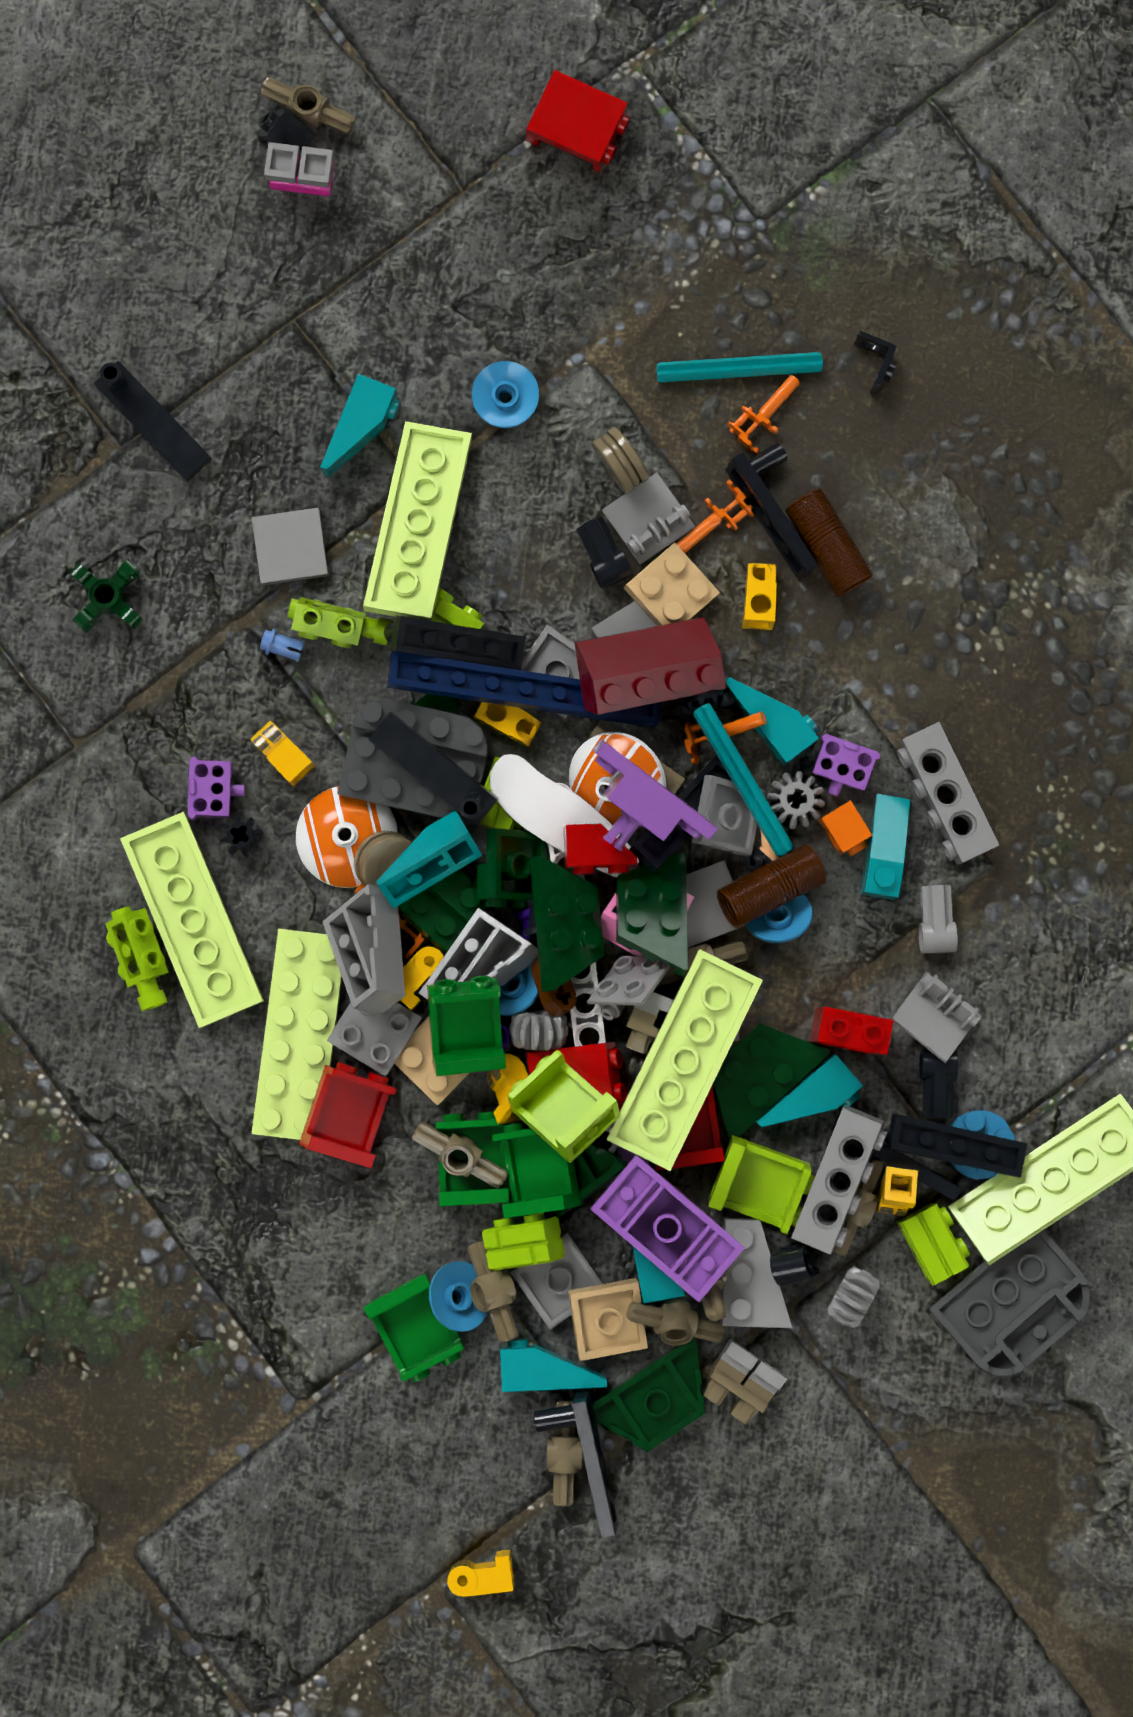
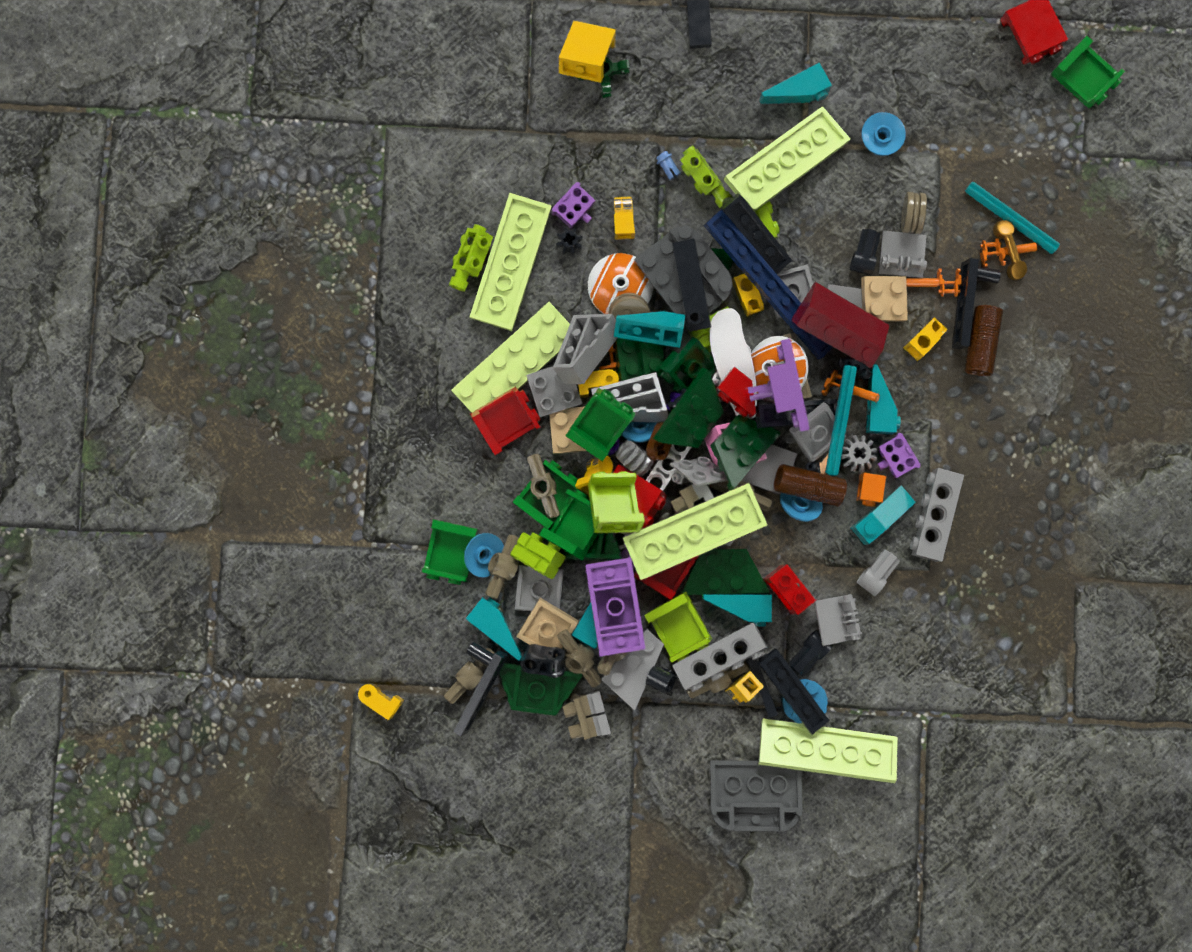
camera: 45 degrees right, 0 degrees up
(67, 592) = (586, 51): none -> yellow panel
(290, 546) = (713, 121): light grey tile -> none
(633, 1362) = (542, 660): none -> black piece
(684, 123) = (1087, 74): none -> green panel
(743, 389) = (1018, 268): none -> pearl gold bar
(853, 1297) = (677, 722): light grey gear -> none
(884, 349) = (1093, 269): black bracket -> none
(933, 1243) = (740, 730): lime brick -> none

